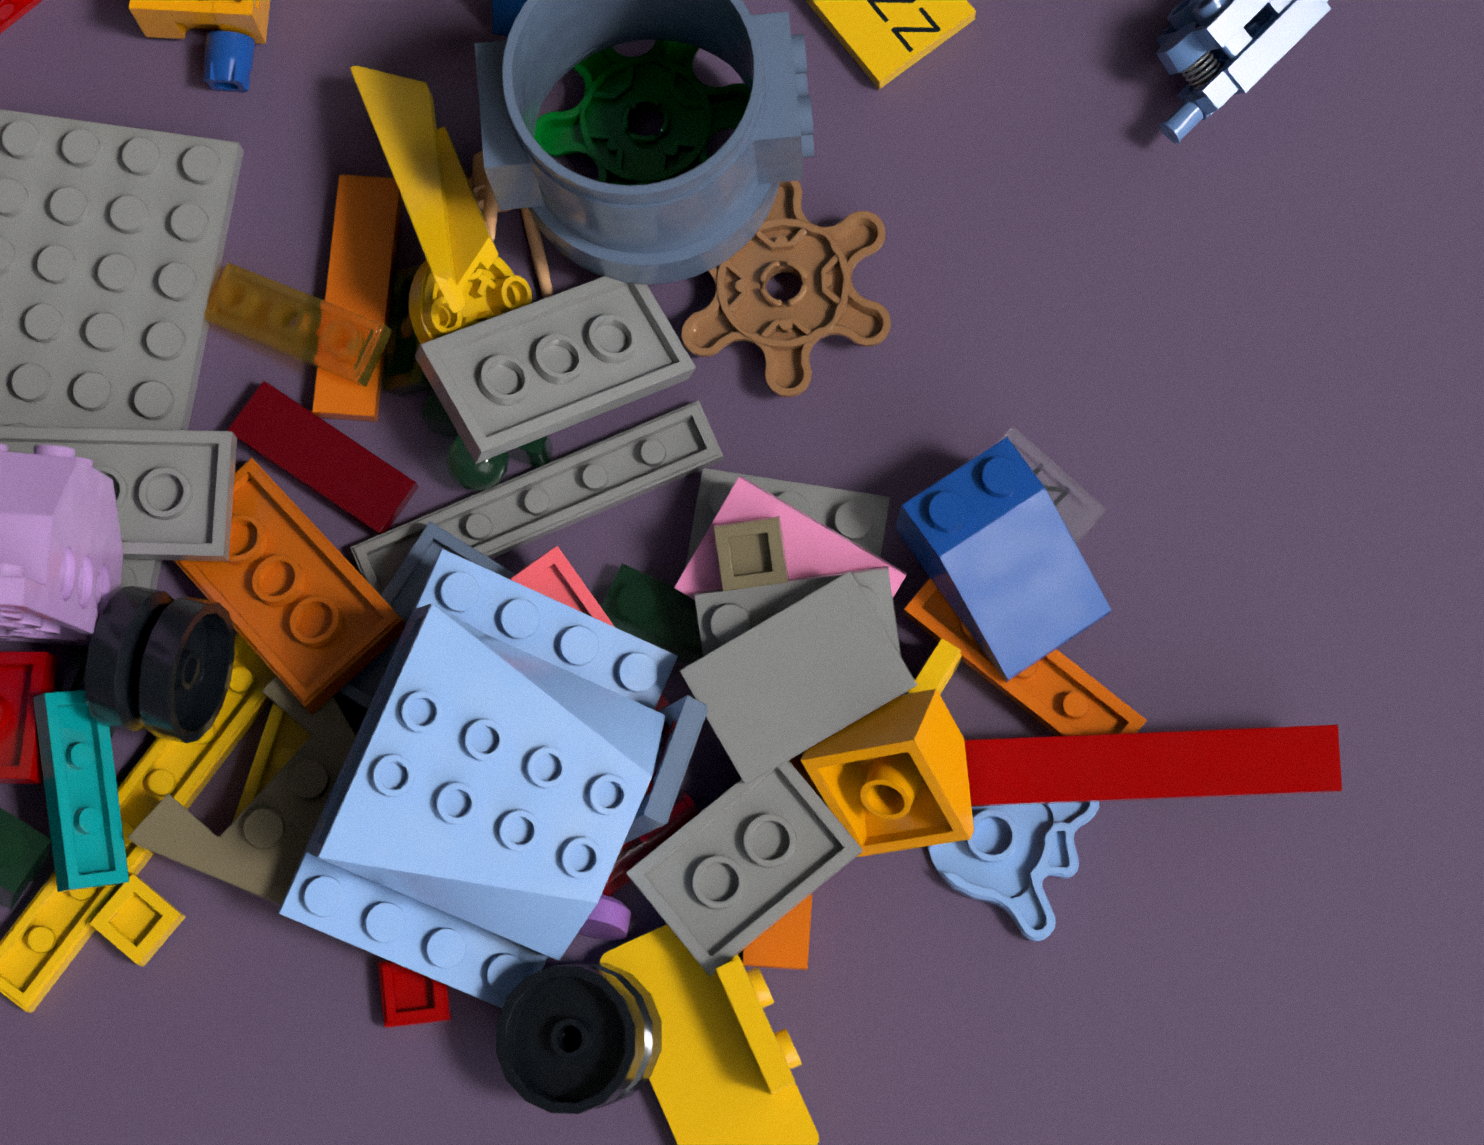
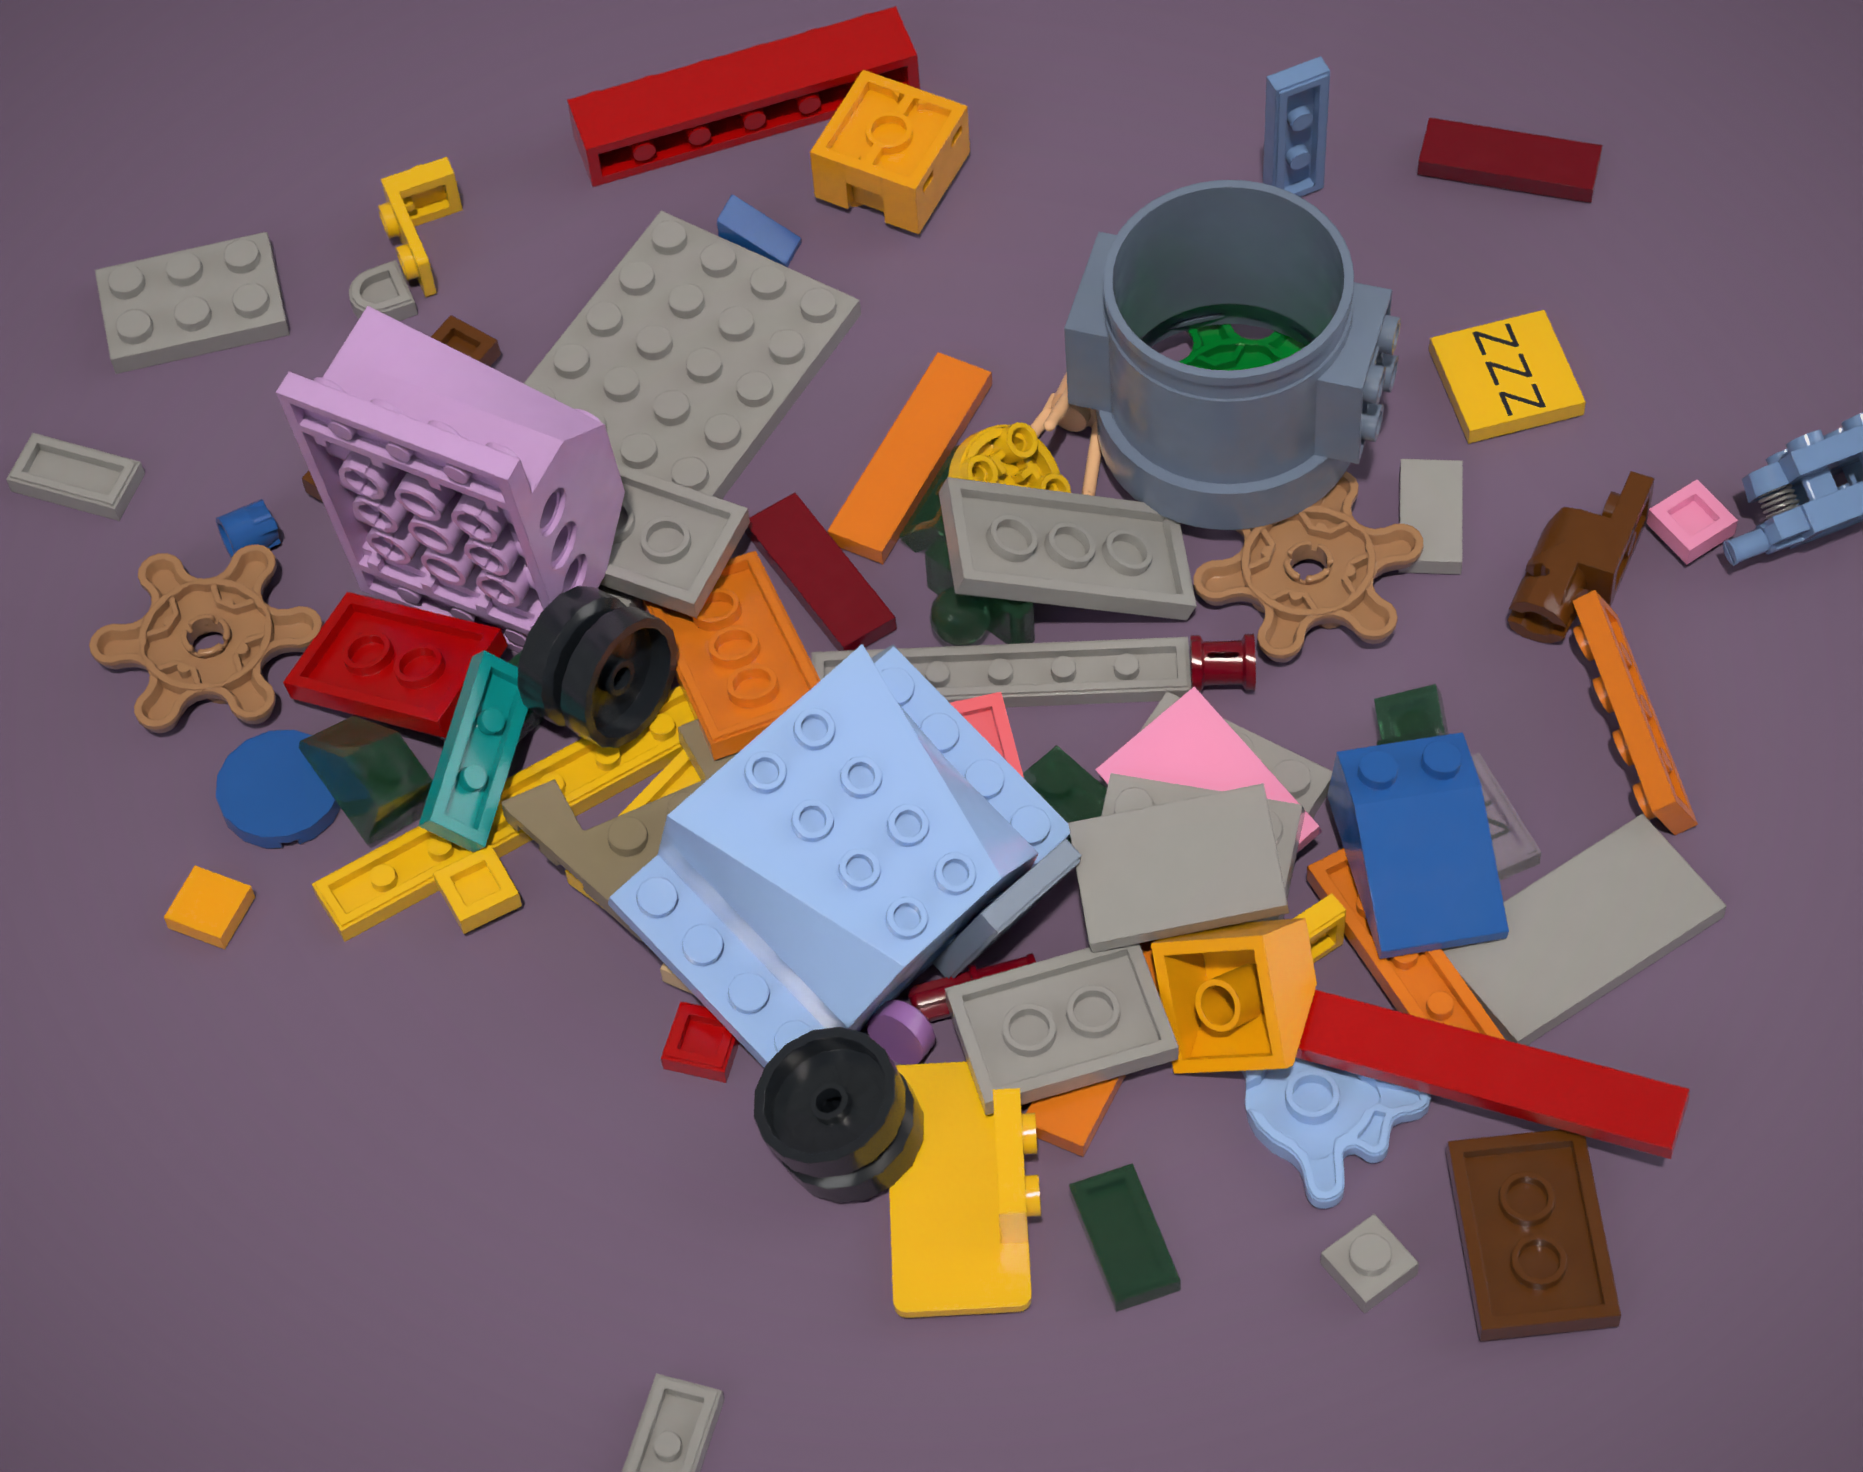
camera: 20 degrees right, 20 degrees down
(106, 100) = (757, 232): none -> piece
(228, 61) = (879, 234): blue hose -> none
(321, 336) = (845, 455): clear yellow tile -> none
(428, 179) = (1014, 363): yellow wedge -> none
(751, 553) = (1178, 750): dark tan plate -> none
(756, 402) = (1223, 662): none -> dark red bush
(875, 178) = (1433, 505): none -> light grey tile
(876, 1039) = (1124, 1237): none -> clear green tile
(946, 427) = (1411, 715): none -> clear green bracket
(1033, 190) = (1578, 556): none -> reddish brown plate
(1103, 981) = (1369, 1263): none -> light grey plate
(1120, 107) = (1691, 521): none -> bright pink plate
(1123, 316) = (1640, 734): none -> orange plate
(1174, 573) = (1586, 931): none -> light grey tile
(1237, 902) = (1532, 1234): none -> reddish brown plate

